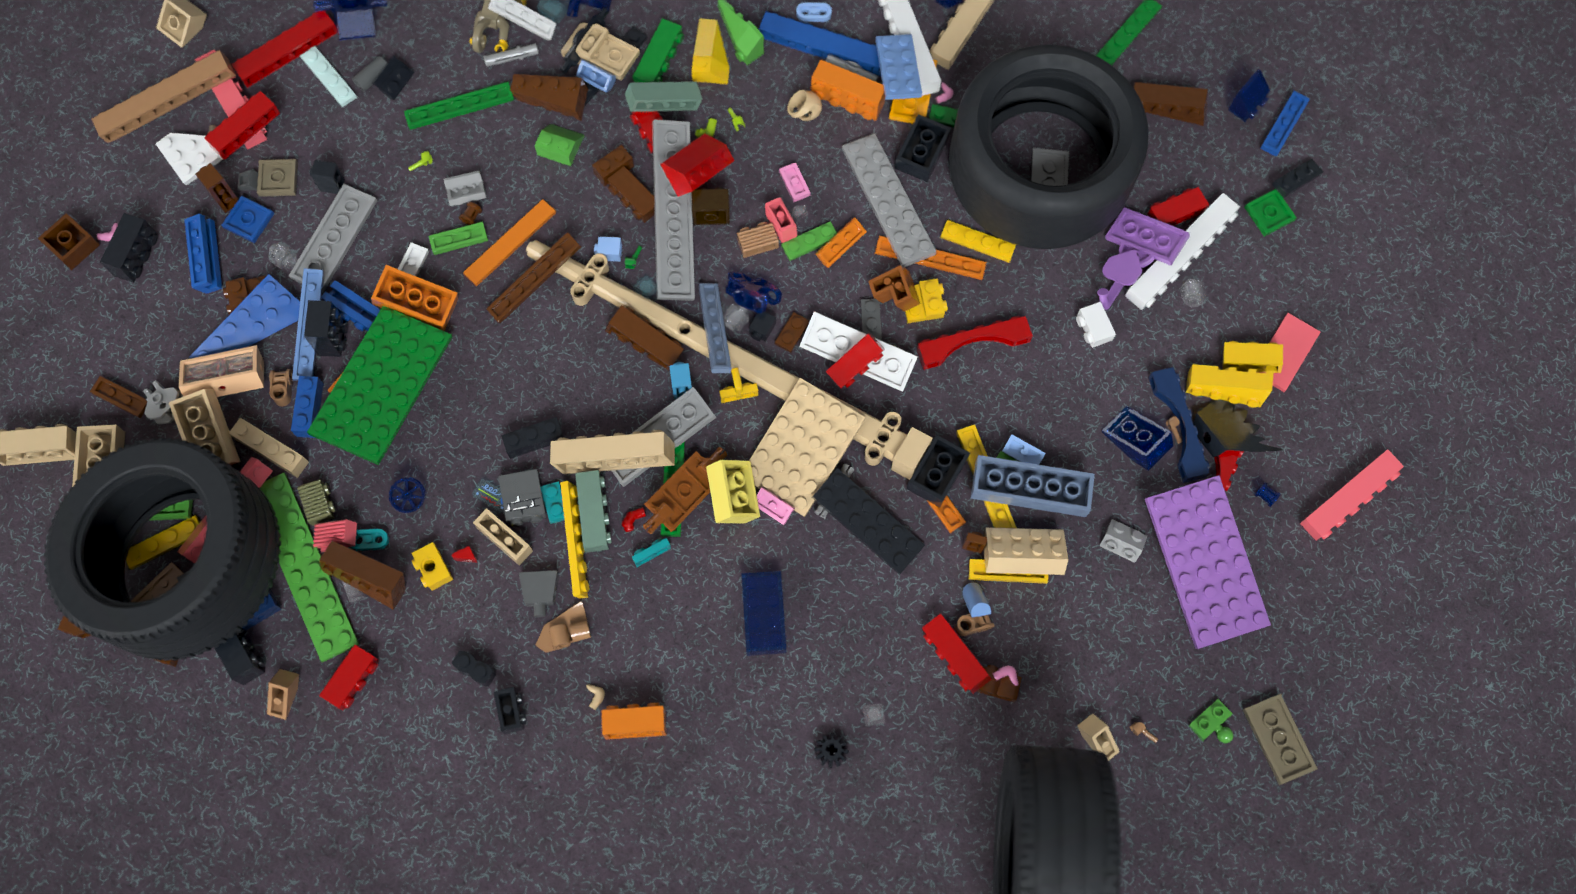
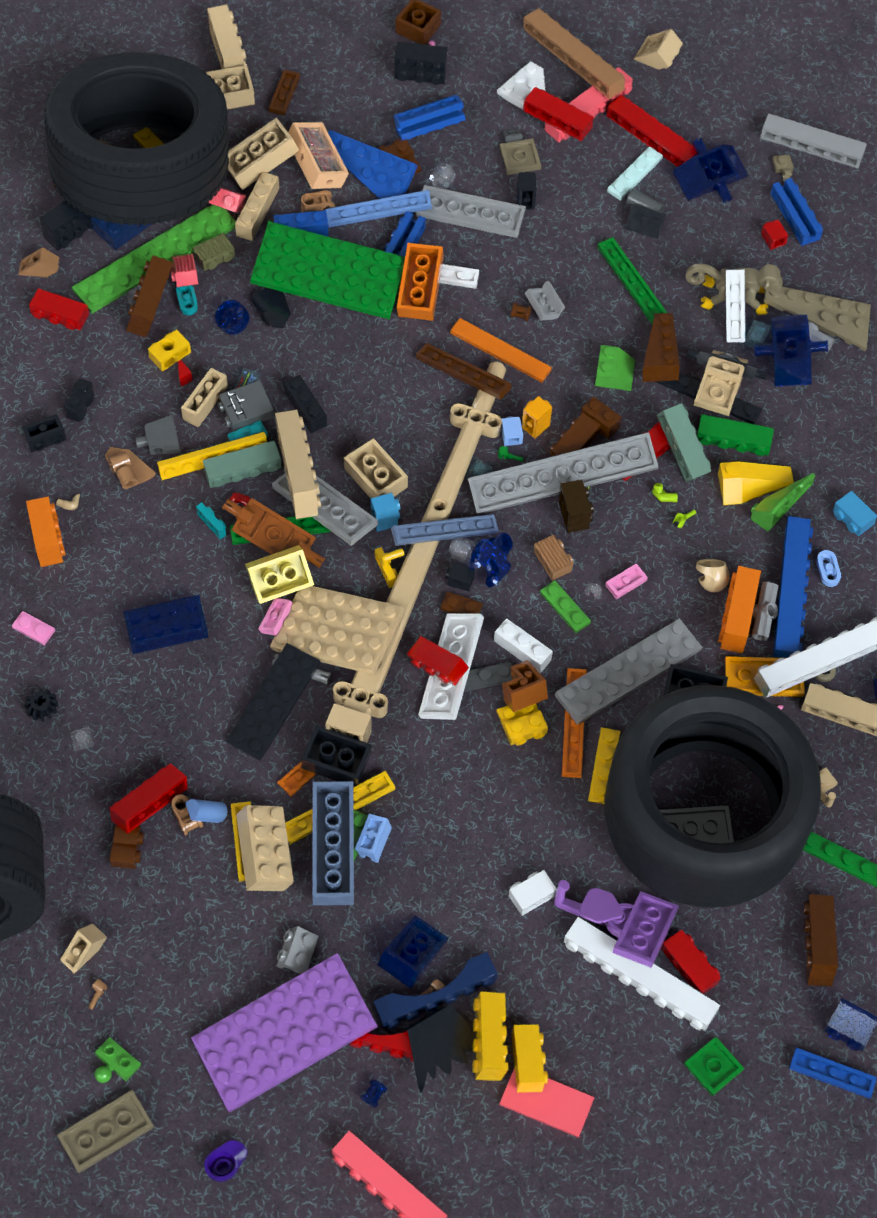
camera: 80 degrees right, 10 degrees down
(158, 403) = (285, 116): light grey hinge -> none
(217, 187) = (491, 109): reddish brown brick -> none
(247, 219) = (473, 144): blue plate -> none
(325, 328) = (373, 217): black brick -> none
(407, 452) = (272, 307): none -> black panel
(425, 156) = (567, 265): lime hand -> none
(458, 238) = (494, 307): bright green plate -> none
(509, 55) = (702, 317): light grey pin -> none
(595, 76) = (691, 382): medium blue brick -> none
(602, 220) = (536, 416): none -> light orange brick
(631, 382) = (375, 470): none -> tan brick
(644, 337) = (423, 474): reddish brown wedge -> none
(696, 164) = (614, 480): red slope -> none
(738, 750) = (33, 628): none -> bright pink plate
(781, 219) = (577, 571): coral brick -> none
(840, 242) = (569, 634): orange tile -> none
(848, 284) = (523, 645): none -> white brick
(898, 67) = (773, 645): medium blue plate -> none
(974, 542) = (266, 795): reddish brown plate -> none
(1007, 671) = (135, 843): bright pink animal -> none
(1010, 332) = (467, 740): red arch -> none
(1193, 293) = (593, 990): clear head -> none
(1297, 178) = (765, 1092): black plate -> none
(1321, 631) = (230, 1155): none -> dark purple piece

